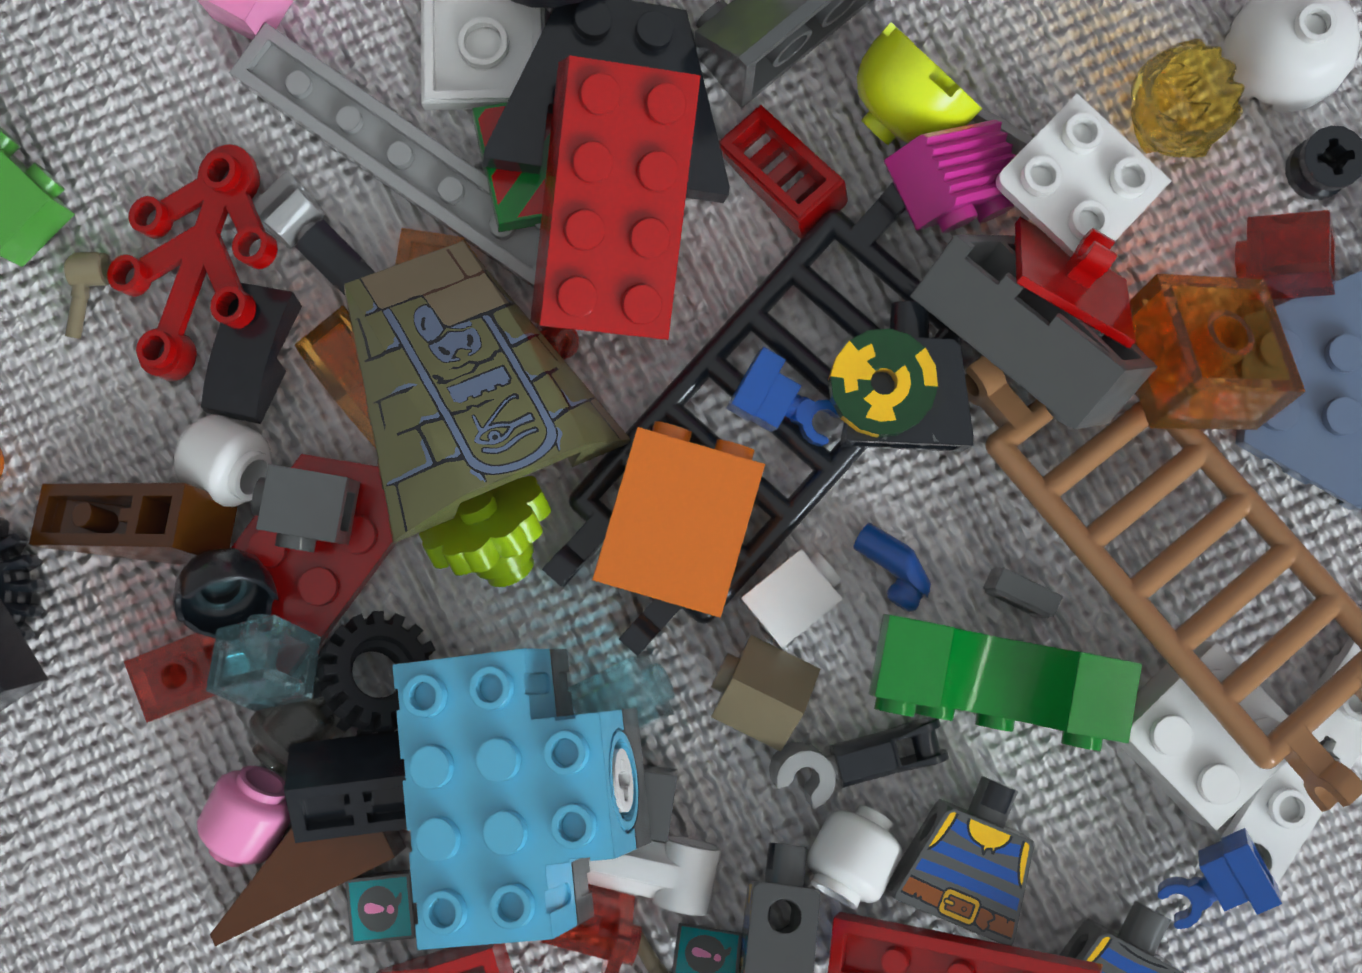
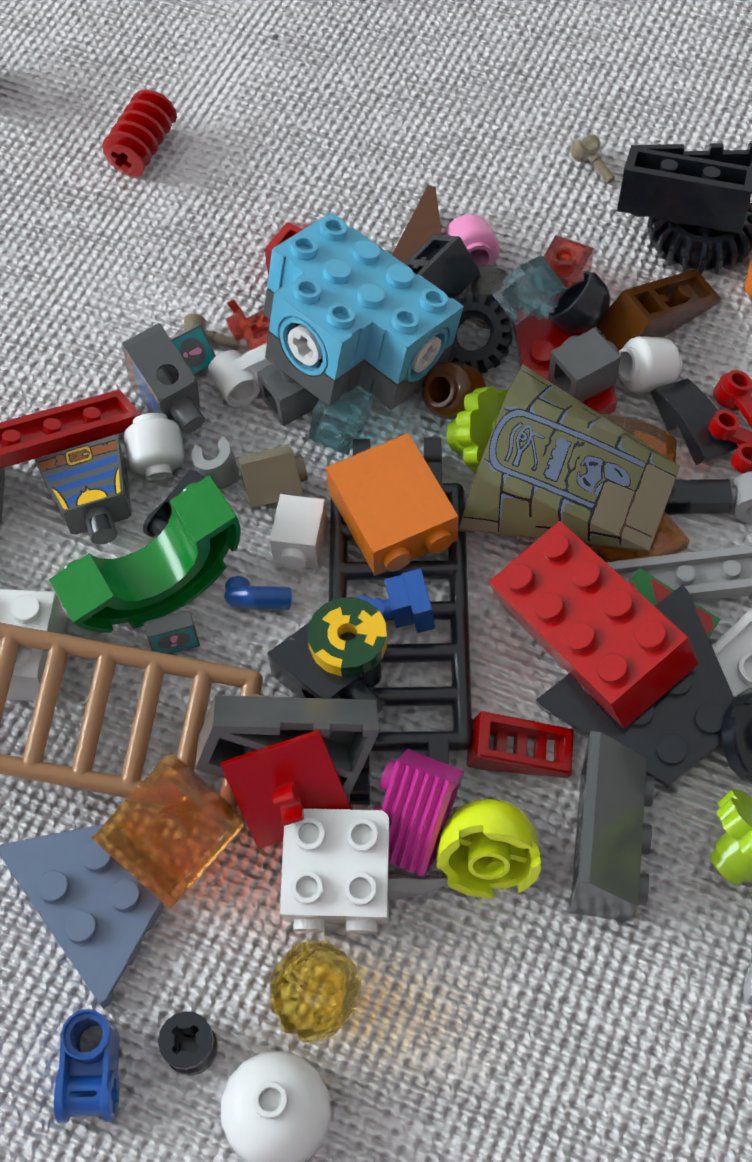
camera: 140 degrees right, 25 degrees down
(468, 617) = (447, 387): none -> reddish brown head
(1290, 253) = (164, 947): clear red brick -> none

